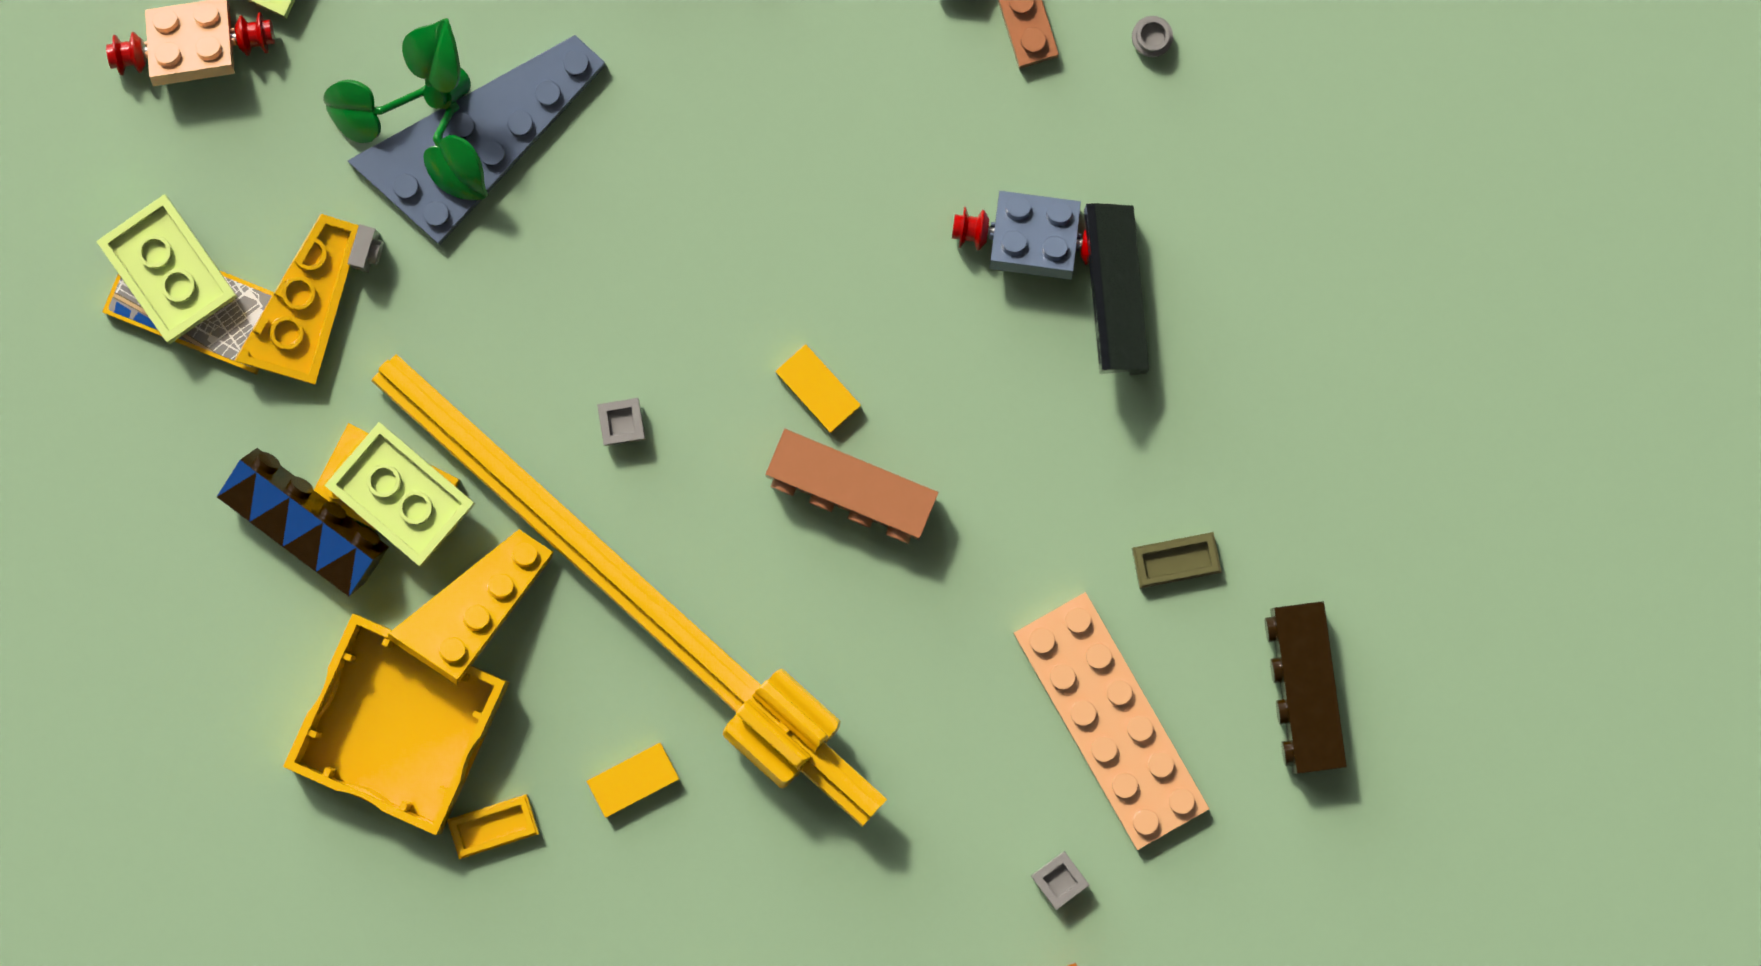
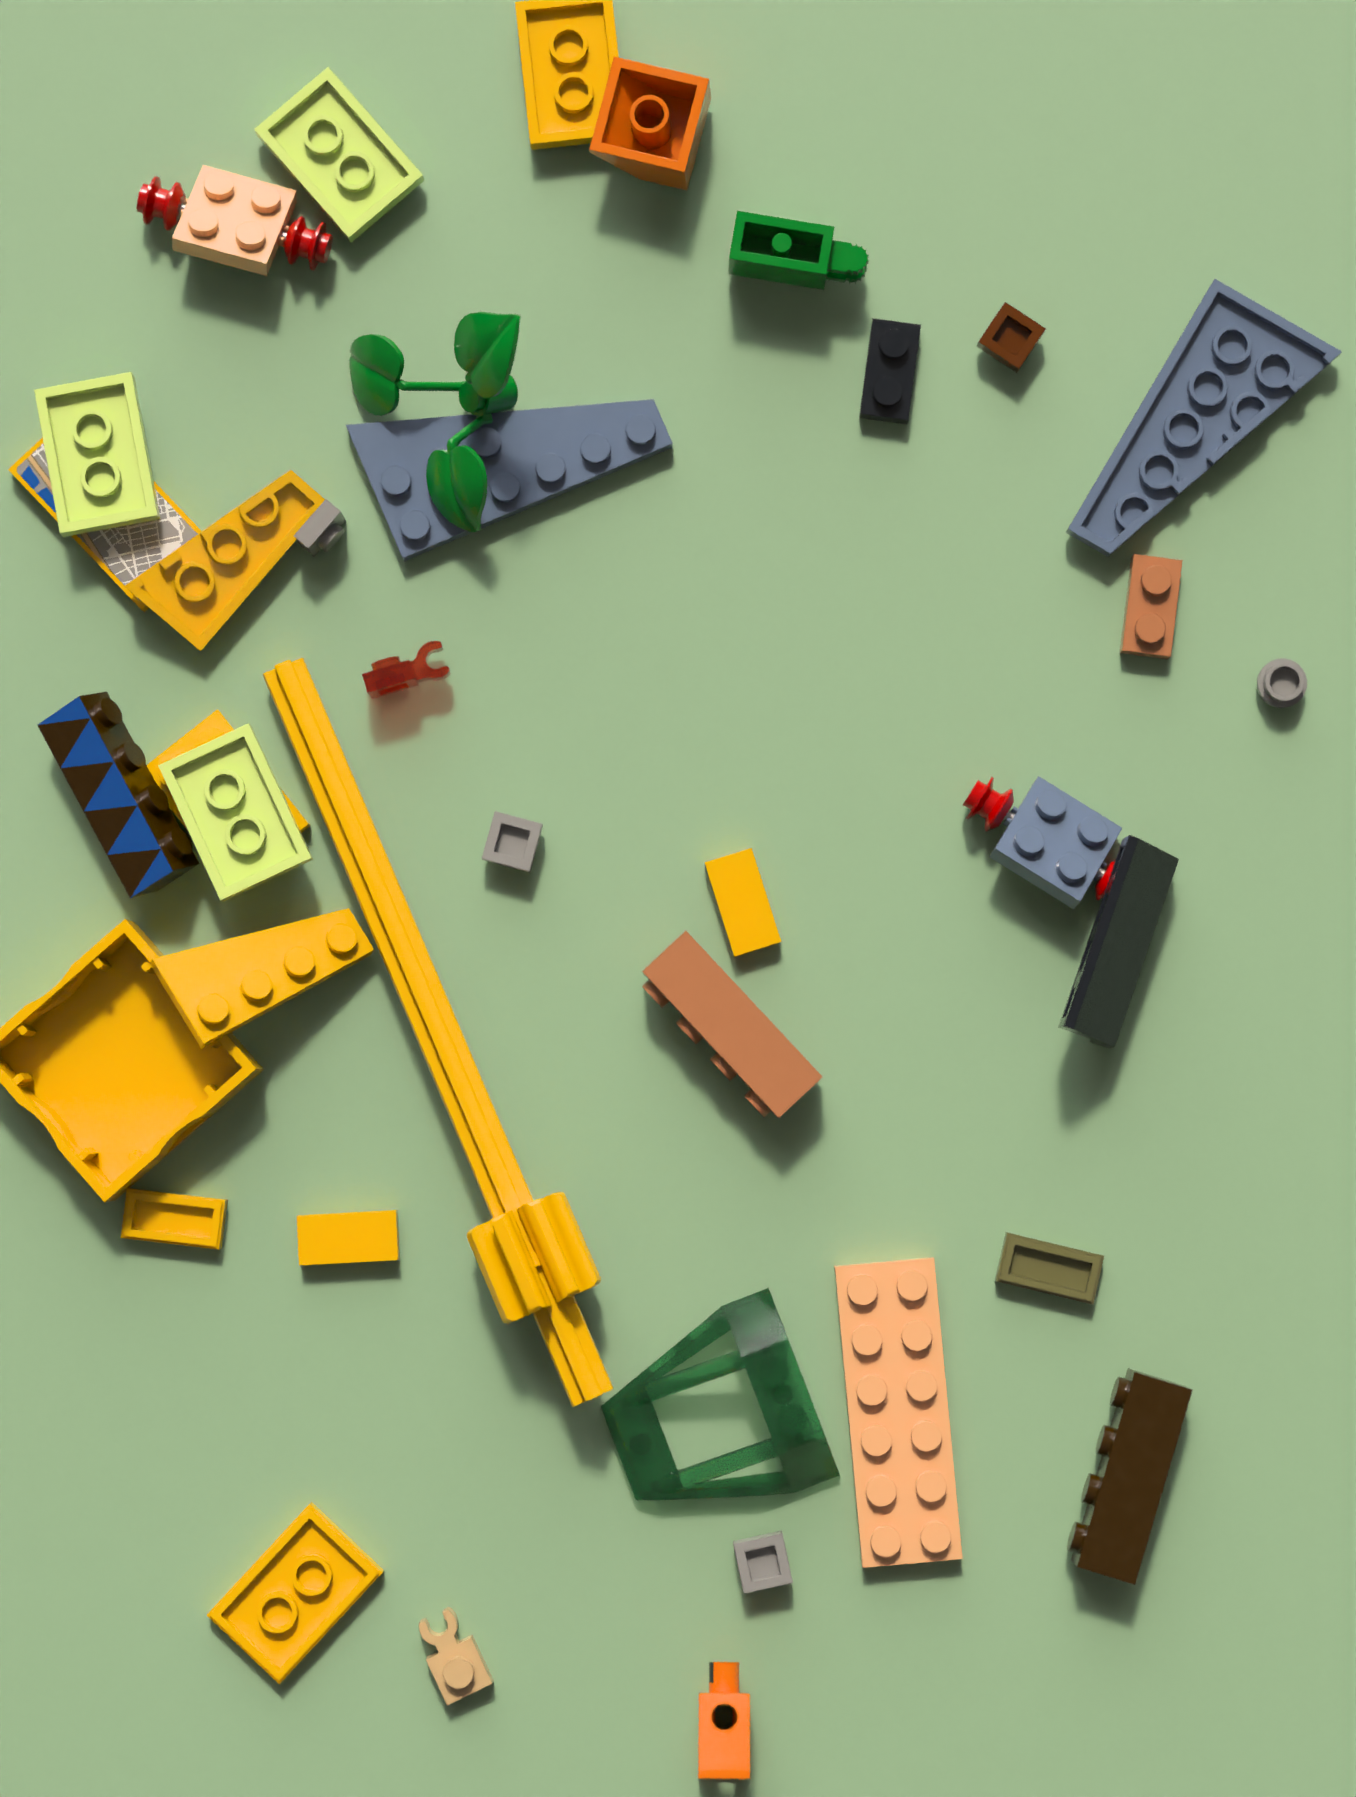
camera: 30 degrees right, 0 degrees up
(472, 336) = (392, 675): none -> clear red plate
(1015, 745) = (778, 1388): none -> clear green windscreen

